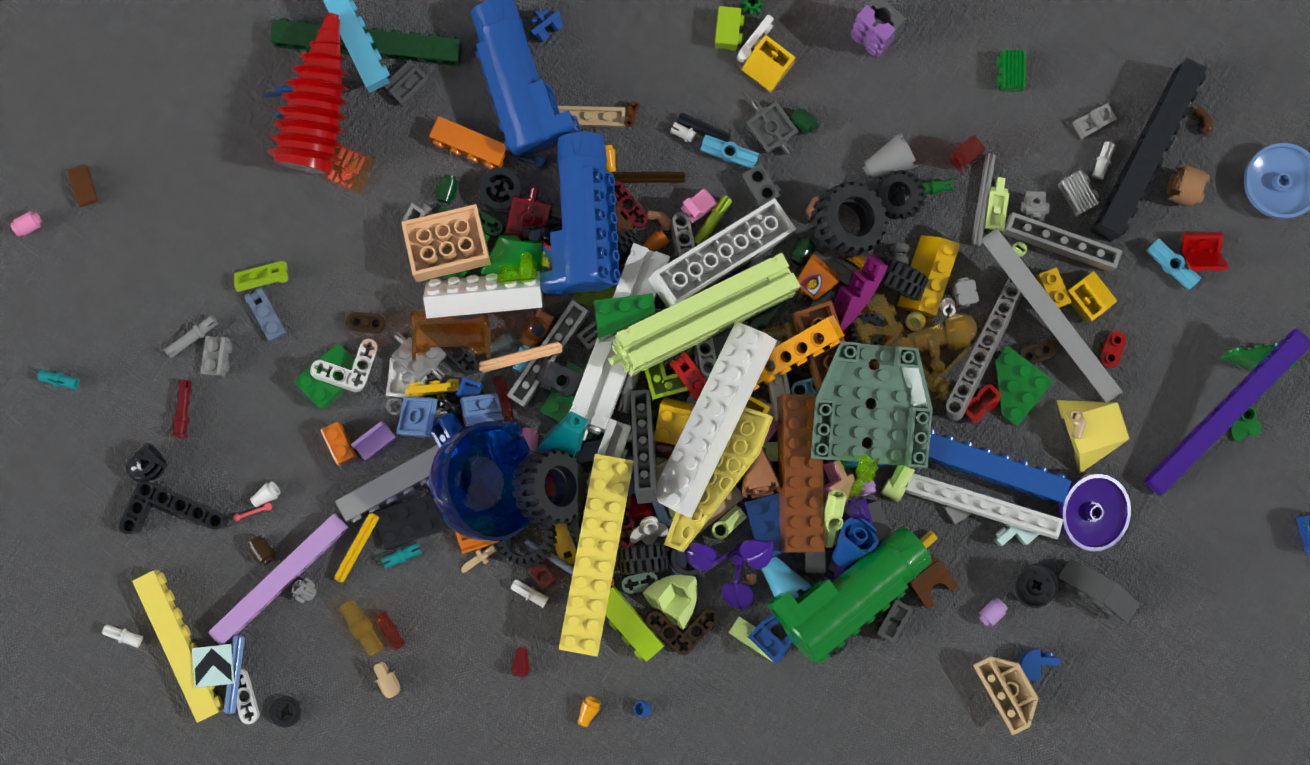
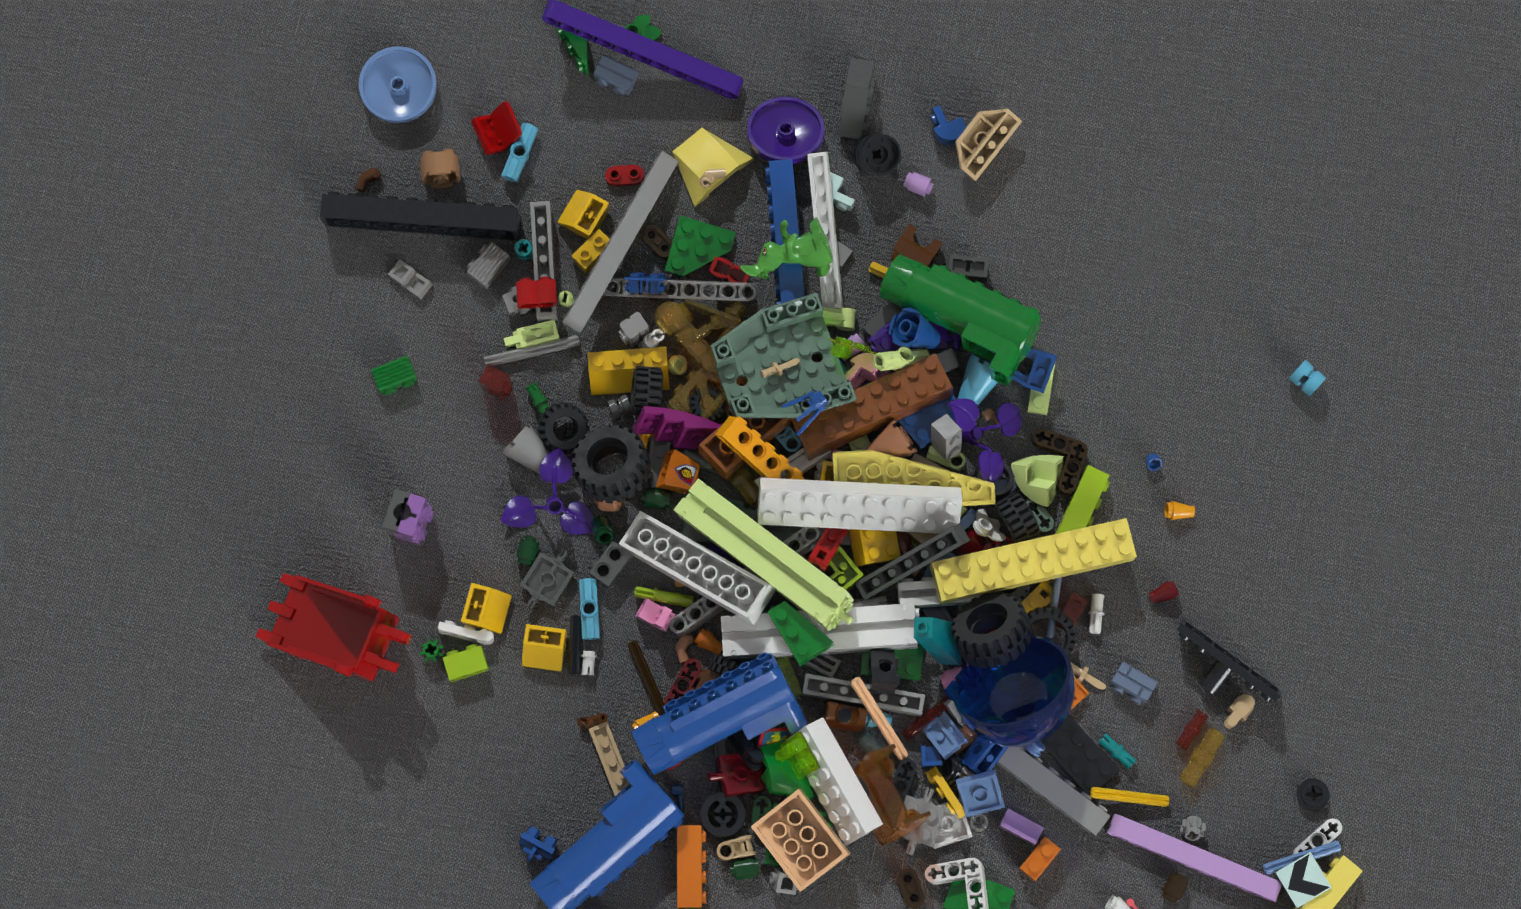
camera: 115 degrees left, 5 degrees down
(431, 687) = (1225, 665): none -> black plate
(453, 597) = (1133, 683): none -> sand blue brick
(466, 189) = (737, 848): none -> tan piece
(713, 99) = (544, 647): none -> yellow slope
(743, 527) = (946, 437): none -> light grey piece
(794, 191) = (602, 529): none -> dark green brick
(814, 172) = (574, 520): none -> dark purple plant
(822, 418) = (817, 402): none -> blue plant
(870, 399) = (777, 369): none -> tan piece
(970, 479) = (808, 250): none -> bright green animal
(1004, 319) = (637, 283): none -> blue hinge
(1033, 218) = (536, 293): none -> red brick
(1084, 225) = (527, 245): none -> teal bush
(1103, 160) = (445, 255): white axle -> none
(1211, 381) = (615, 75): none -> sand blue brick

